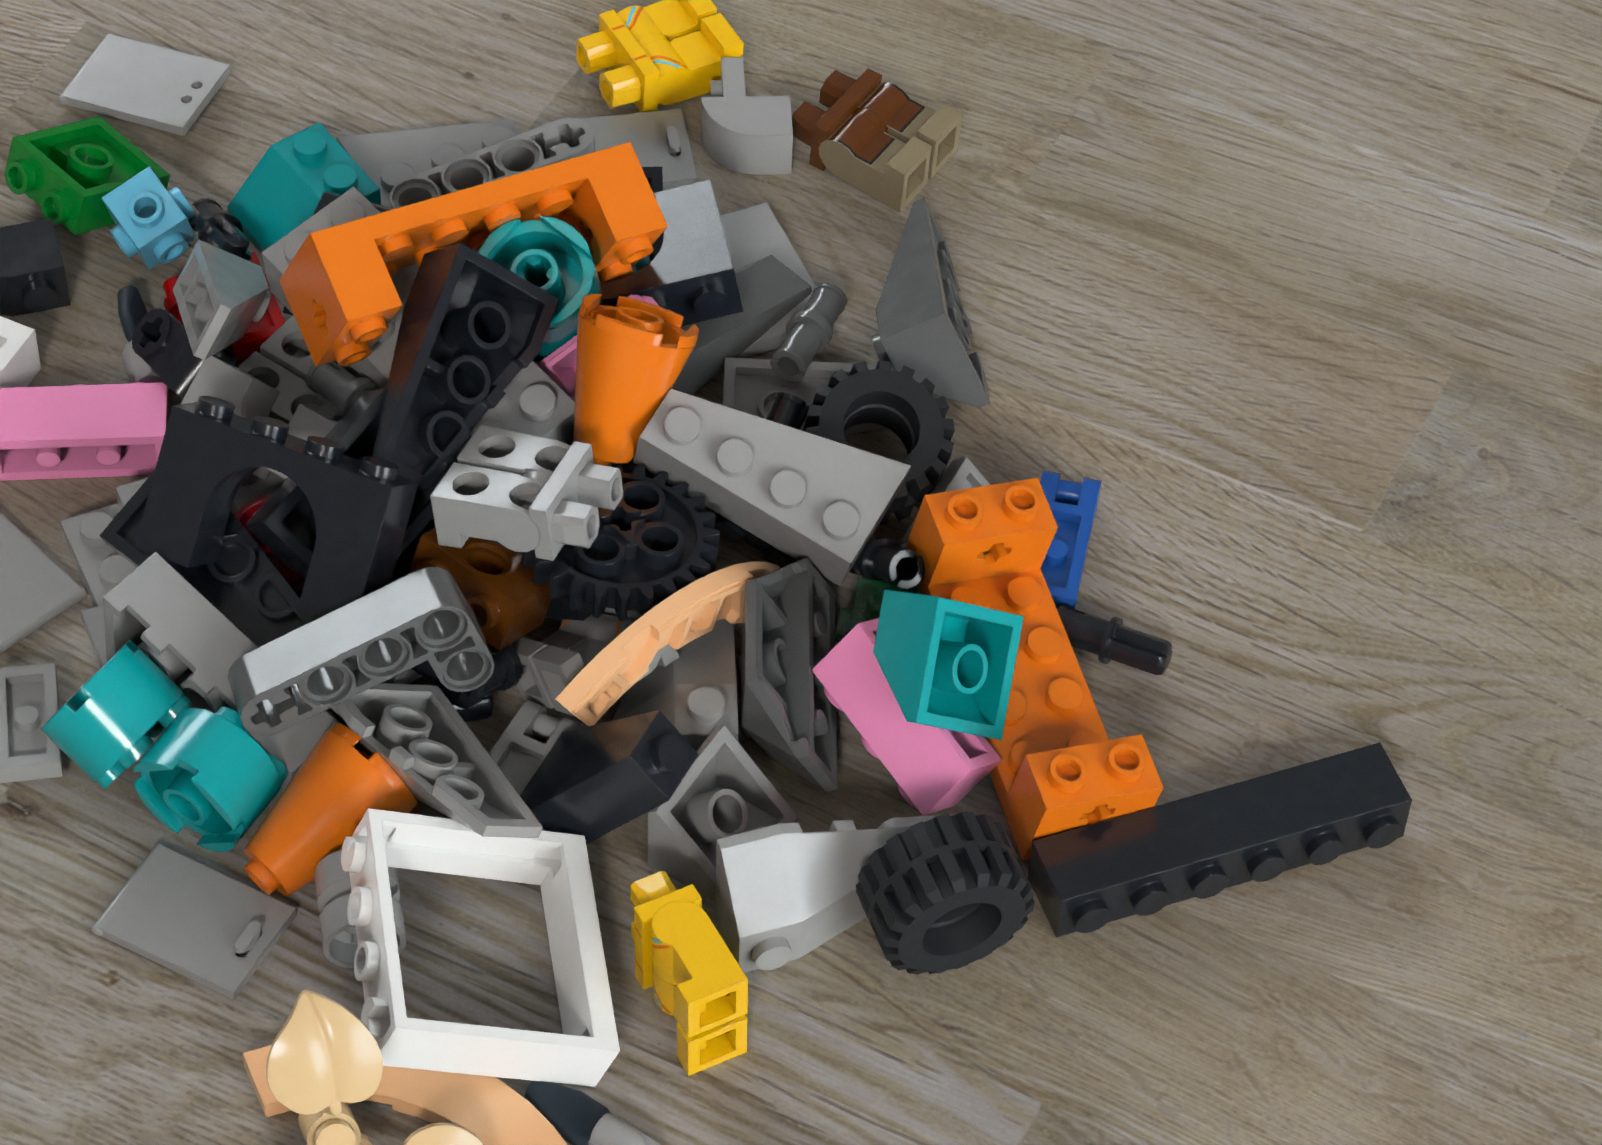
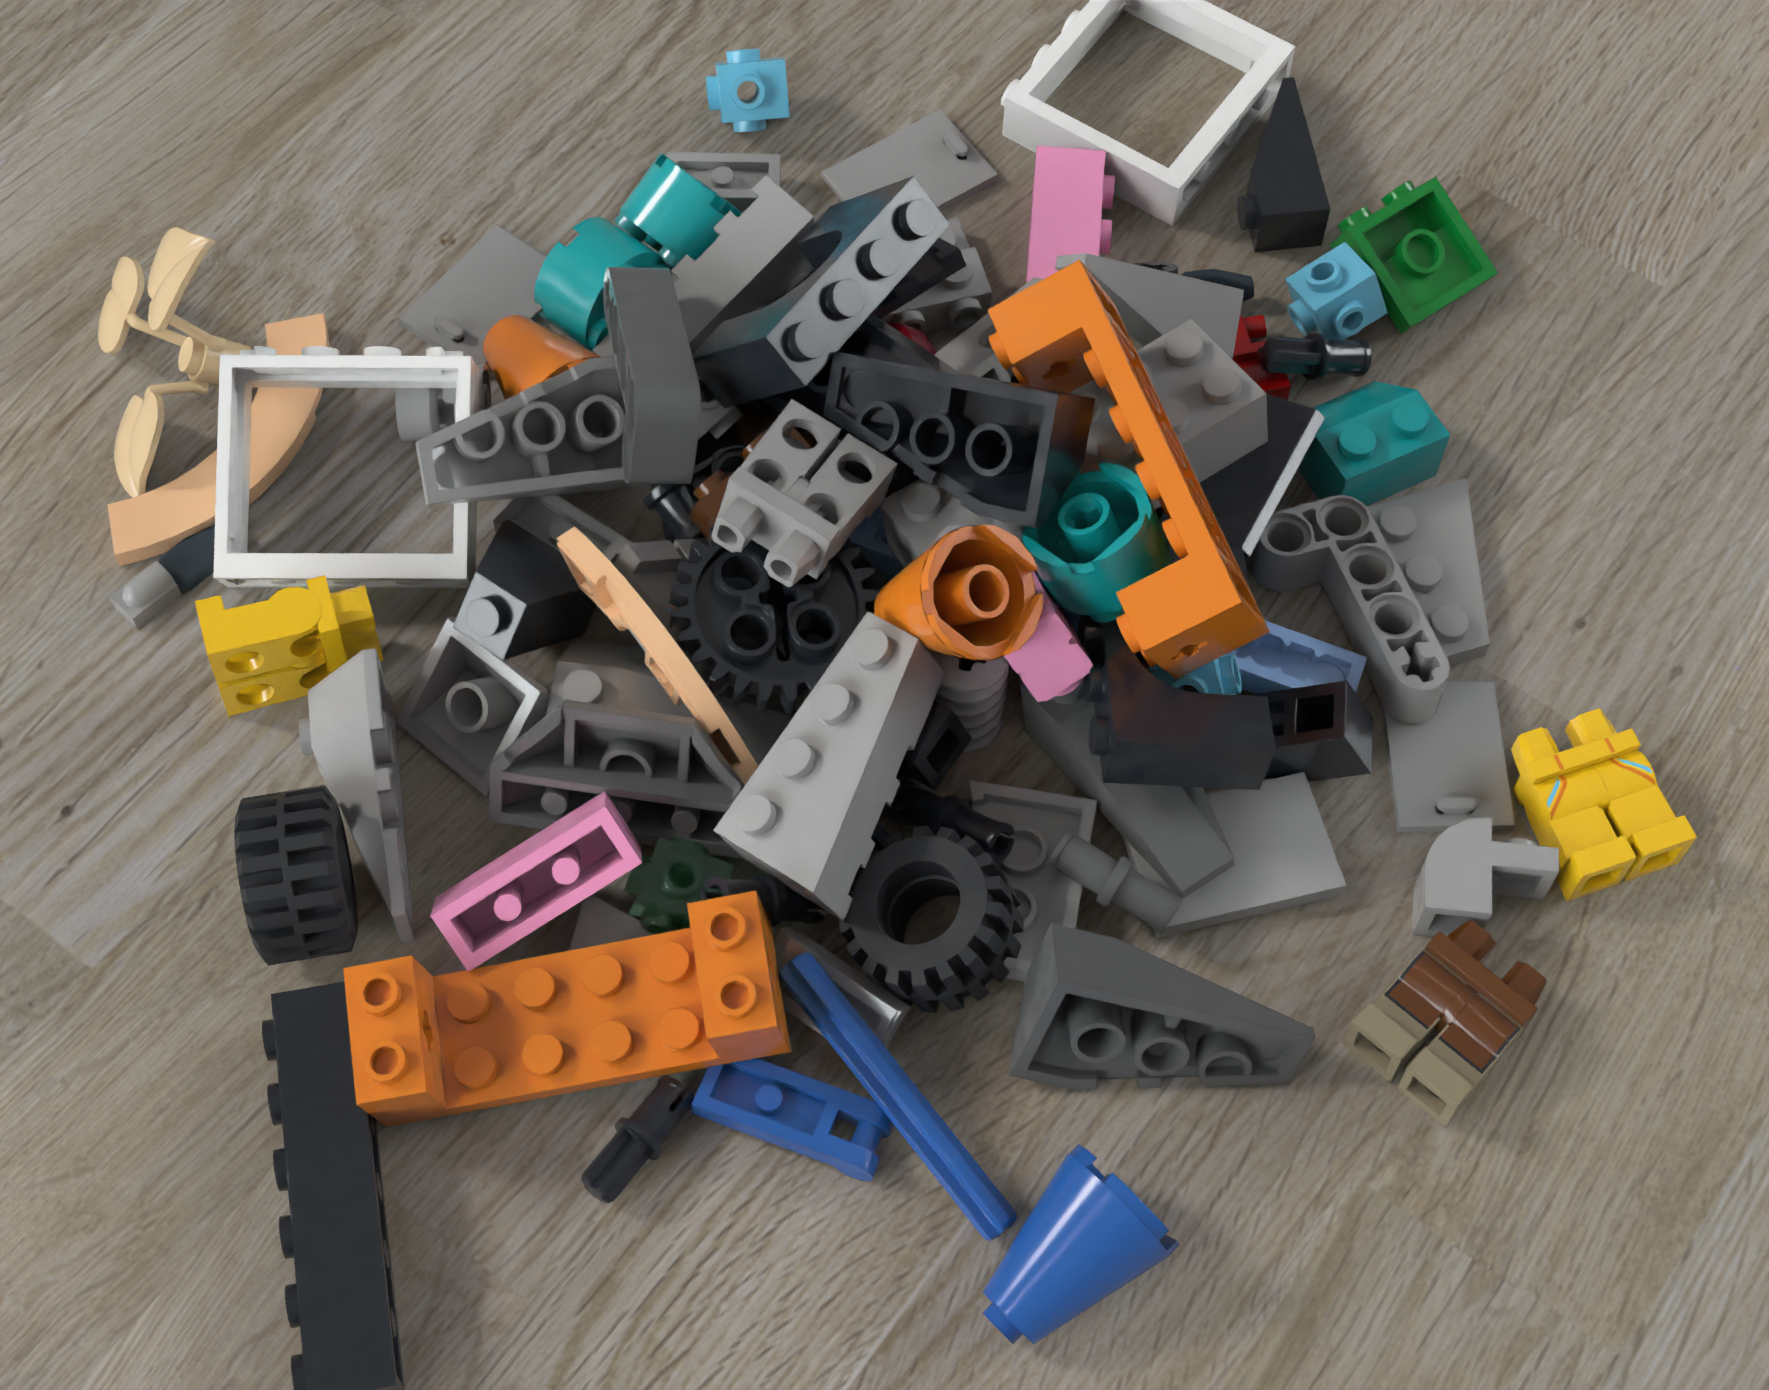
camera: 100 degrees right, 10 degrees up
(145, 84) = (1557, 324): light grey container -> none
(948, 661) = (551, 896): teal slope -> none
(1063, 439) = (898, 1096): none -> blue axle
(1136, 336) = (1073, 1251): none -> blue cone

